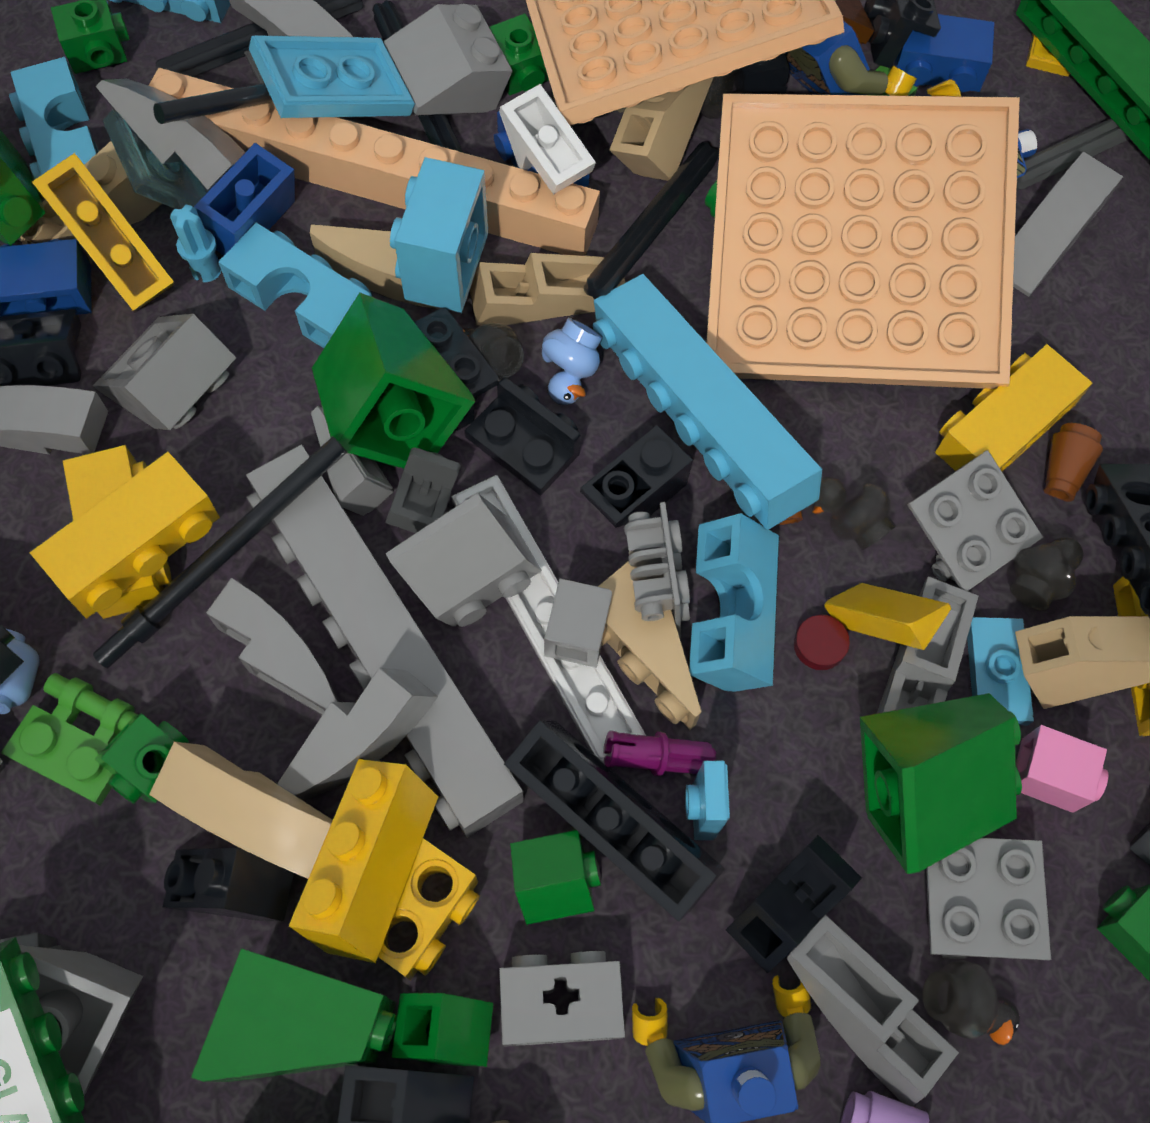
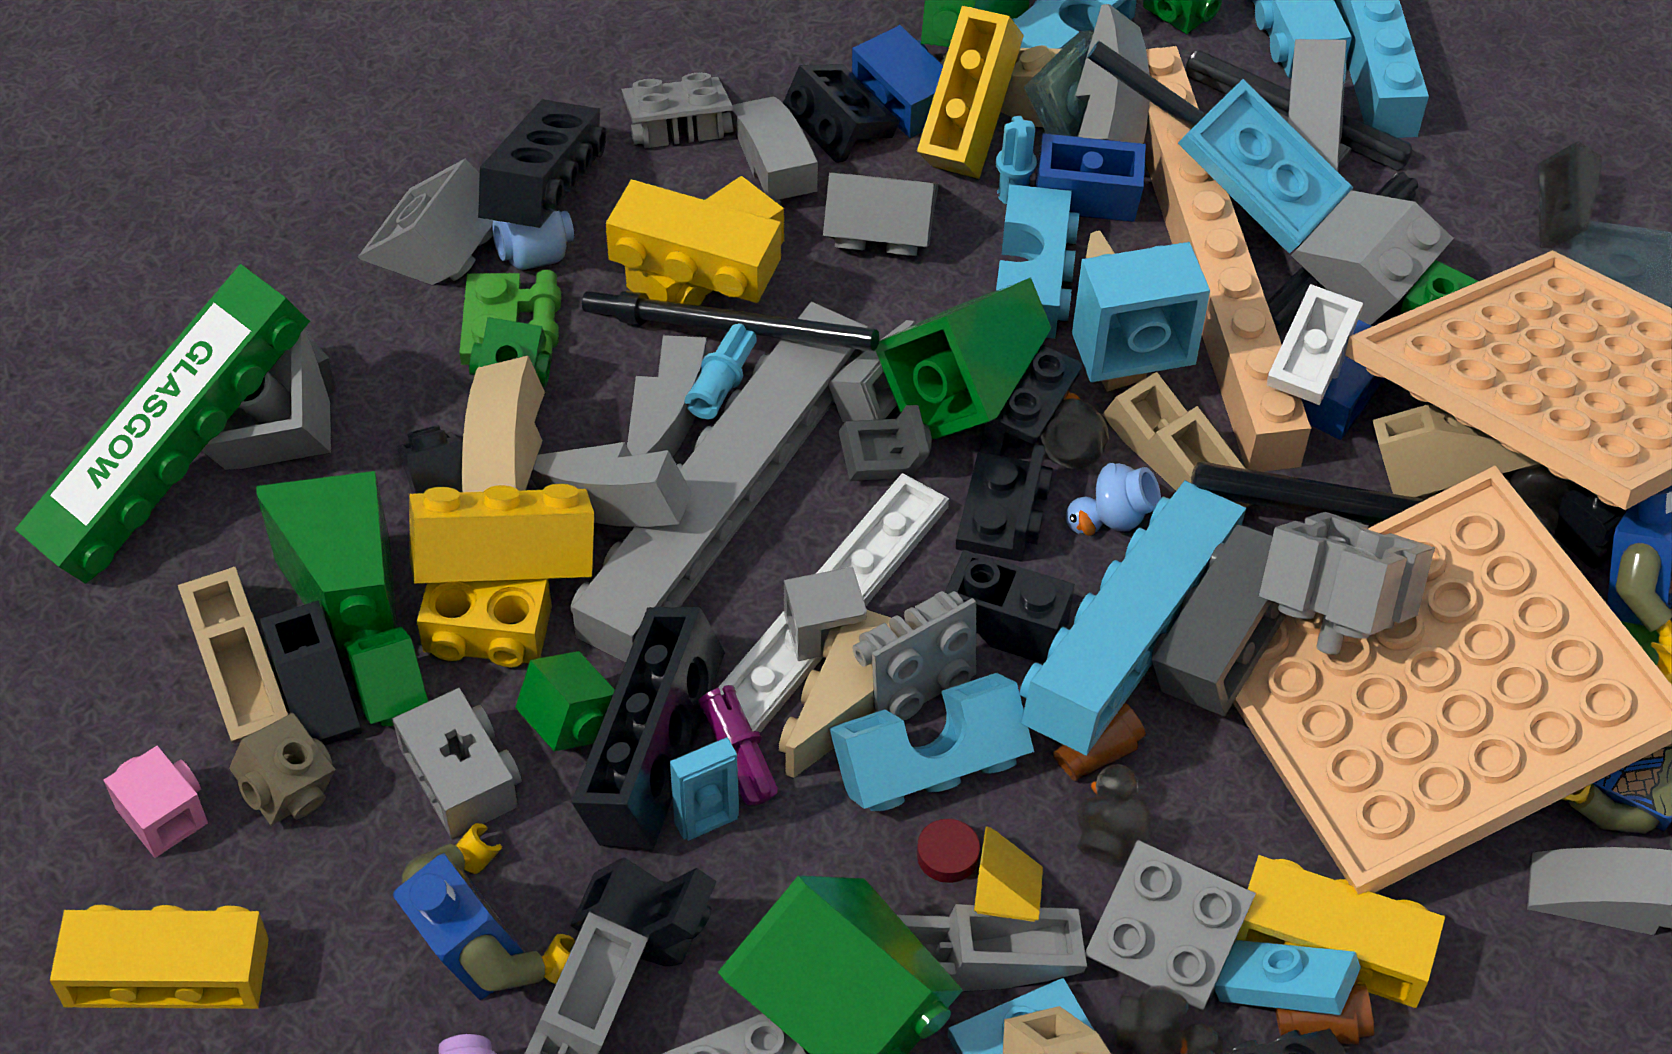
camera: 65 degrees right, 15 degrees down
(277, 583) = (720, 372): none -> medium azure axle
(465, 561) = (829, 493): light grey slope -> none
(743, 332) = (1220, 626): none -> dark grey brick
(785, 235) = (1347, 574): none -> light grey brick
(1049, 463) = (1288, 977): none -> medium azure plate

